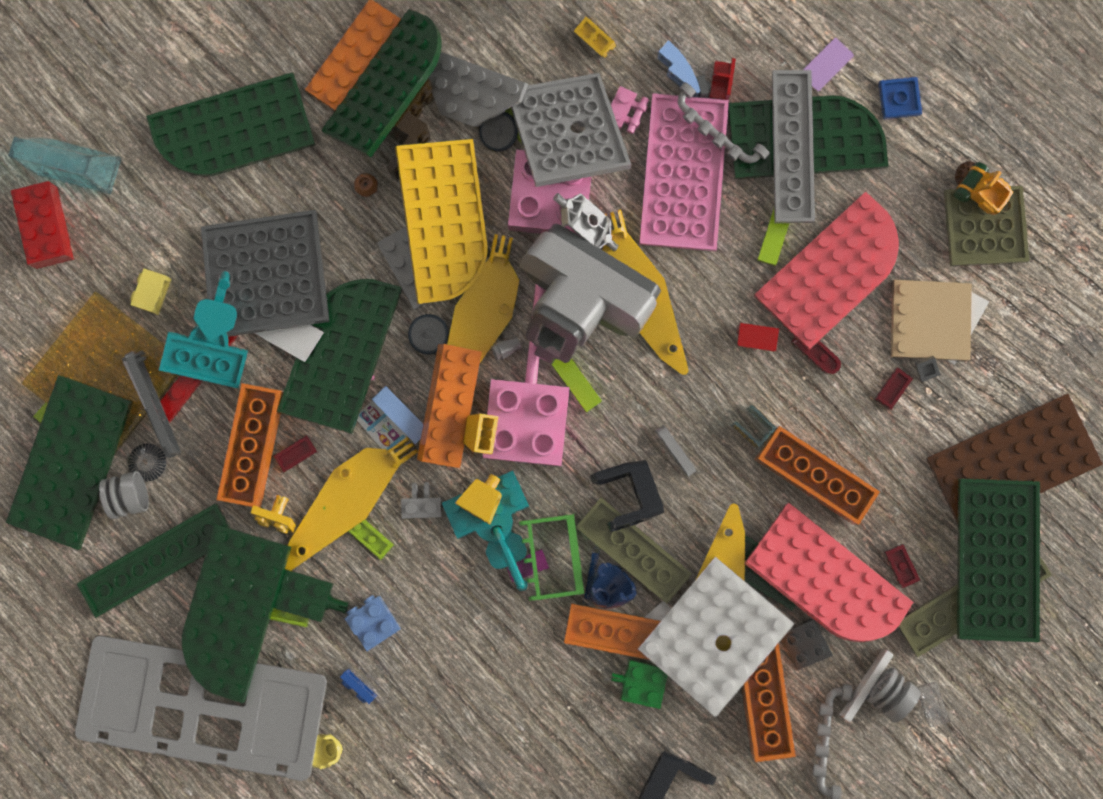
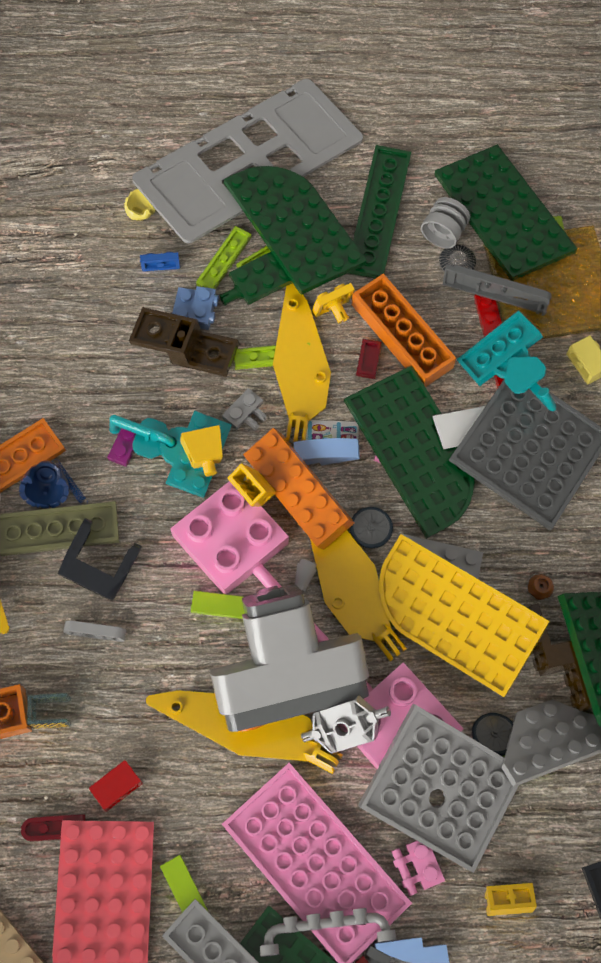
camera: 130 degrees right, 15 degrees down
(309, 641) = (224, 258): none -> lime tile
(410, 597) = (184, 341): none -> dark brown bracket
(574, 554) = (126, 503): bright green hinge -> none

